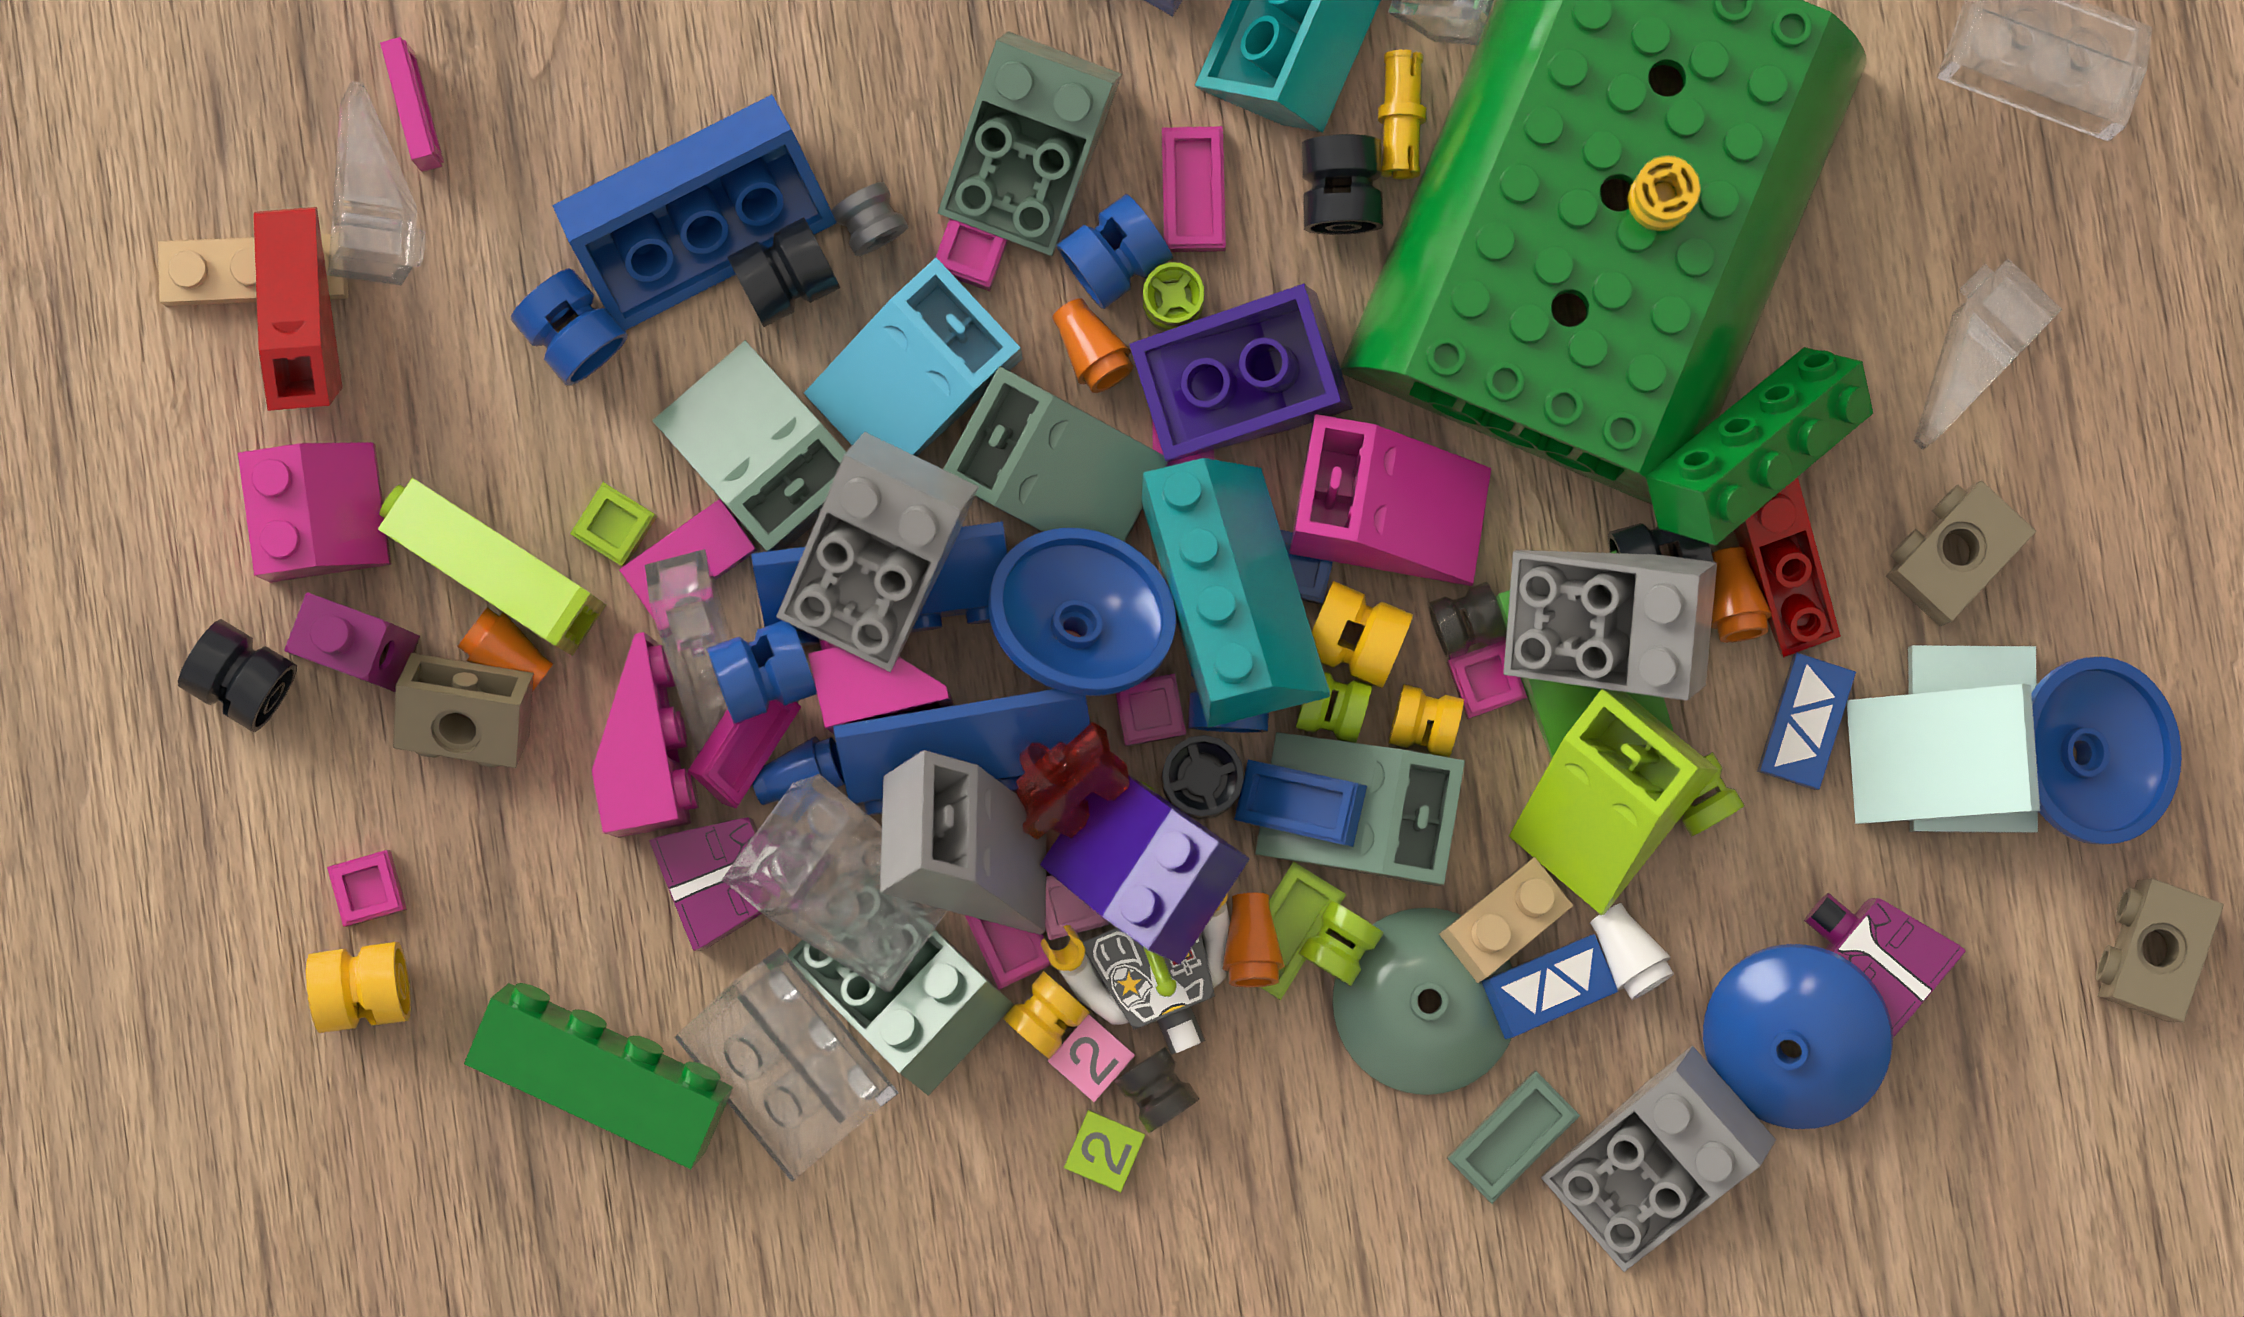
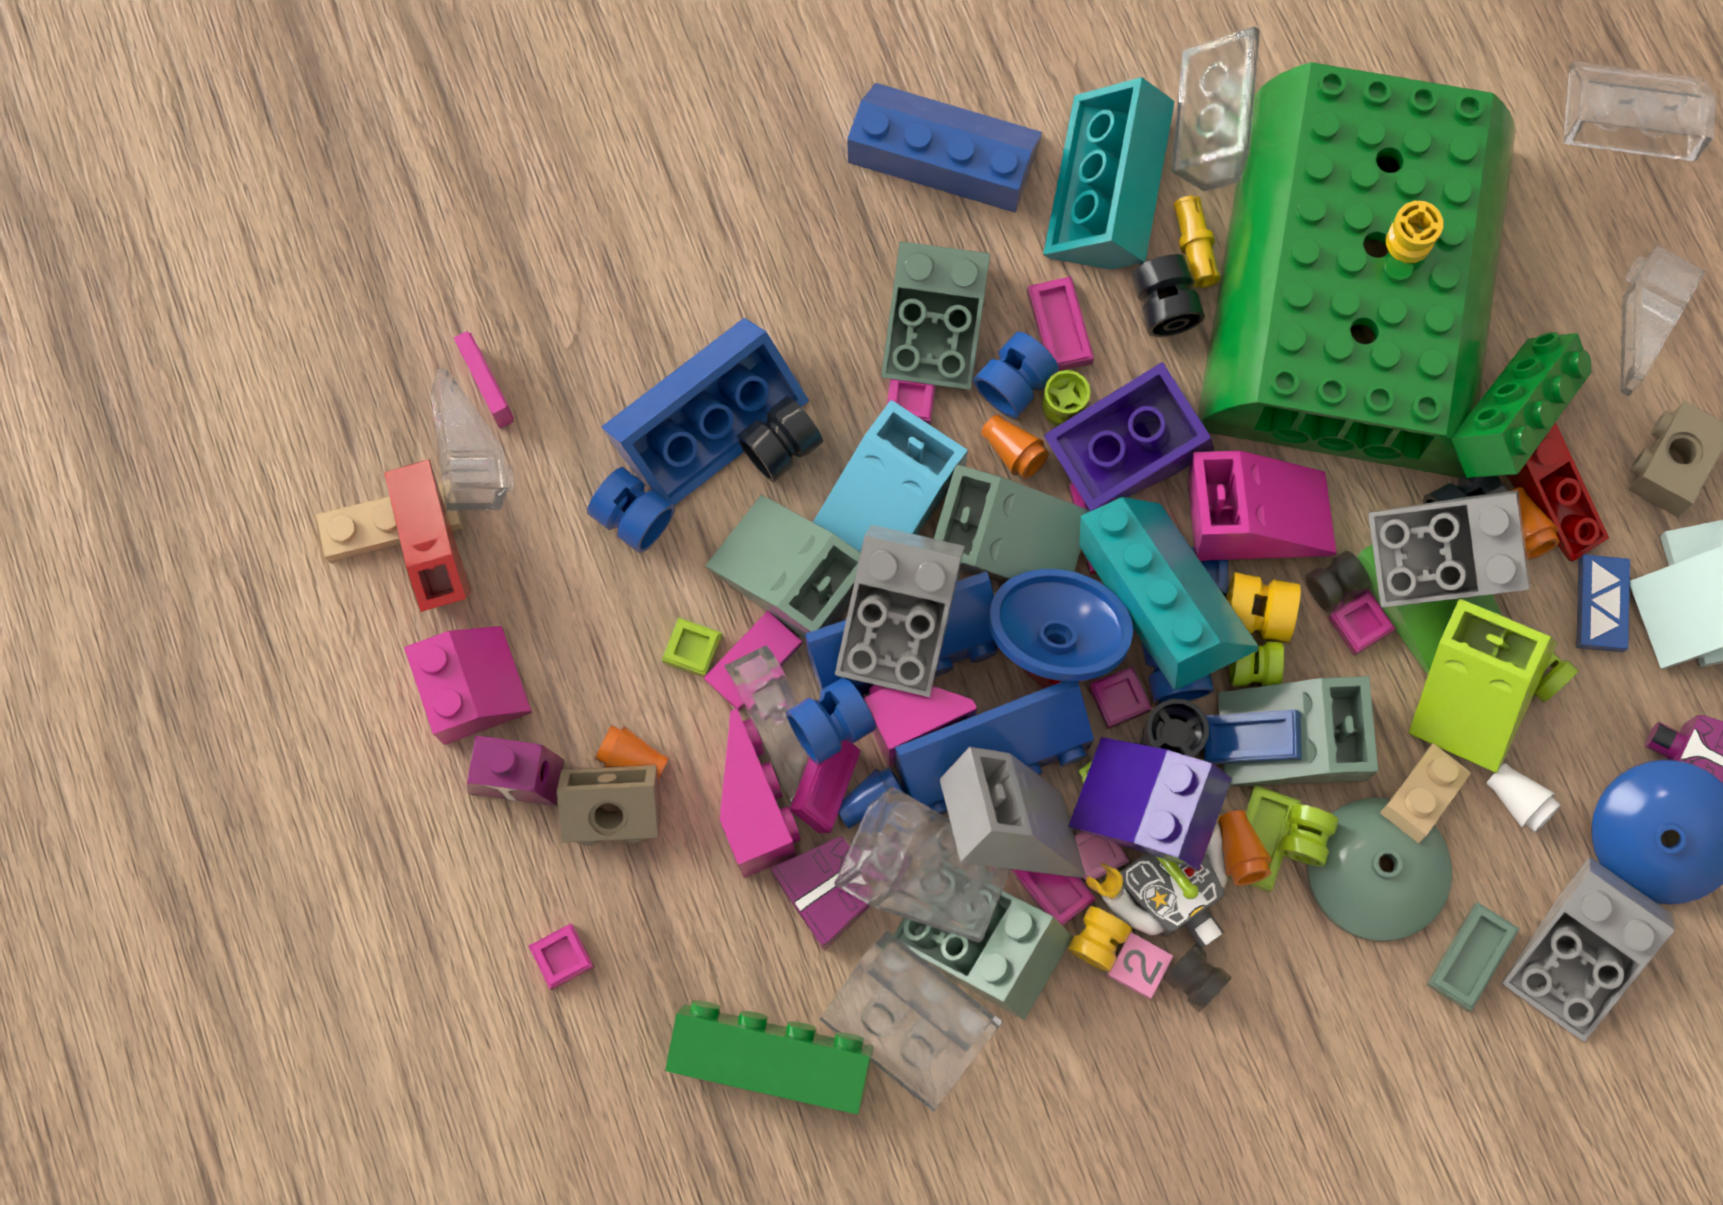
camera: 10 degrees left, 10 degrees down
(232, 672) = (429, 813): black wheel -> none
(358, 987) = (570, 1031): yellow wheel -> none
(490, 565) = (610, 692): slope -> none
(869, 218) = (833, 390): flat silver wheel -> none
(1062, 778) = (1074, 753): clear red hips -> none
(1104, 1151) = (1167, 1034): lime tile -> none
(1411, 720) = (1326, 658): yellow wheel -> none
(1549, 986) = (1471, 835): blue tile -> none

